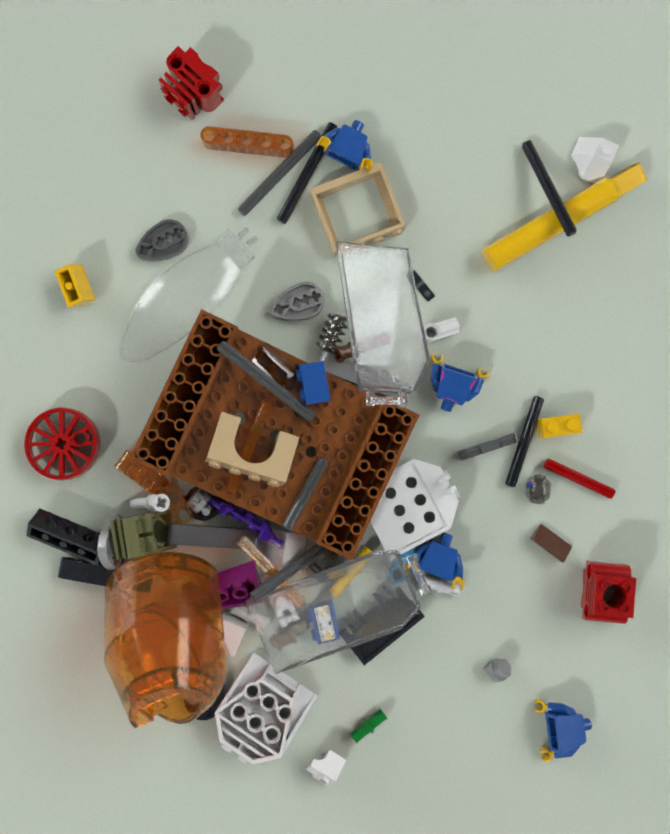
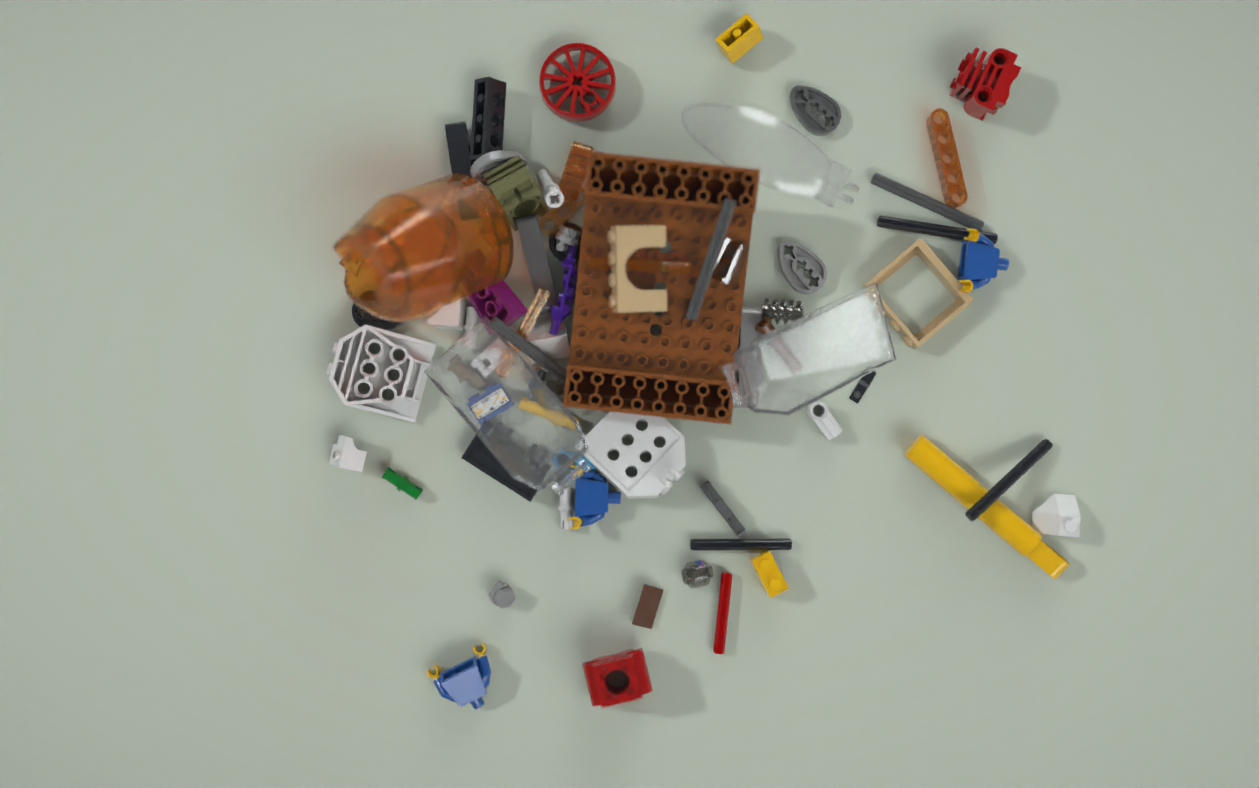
camera: 75 degrees right, 0 degrees up
(305, 493) = (612, 338): dark grey axle -> none
(313, 383) = (725, 307): blue brick -> none
(454, 384) = (774, 452): blue torso -> none

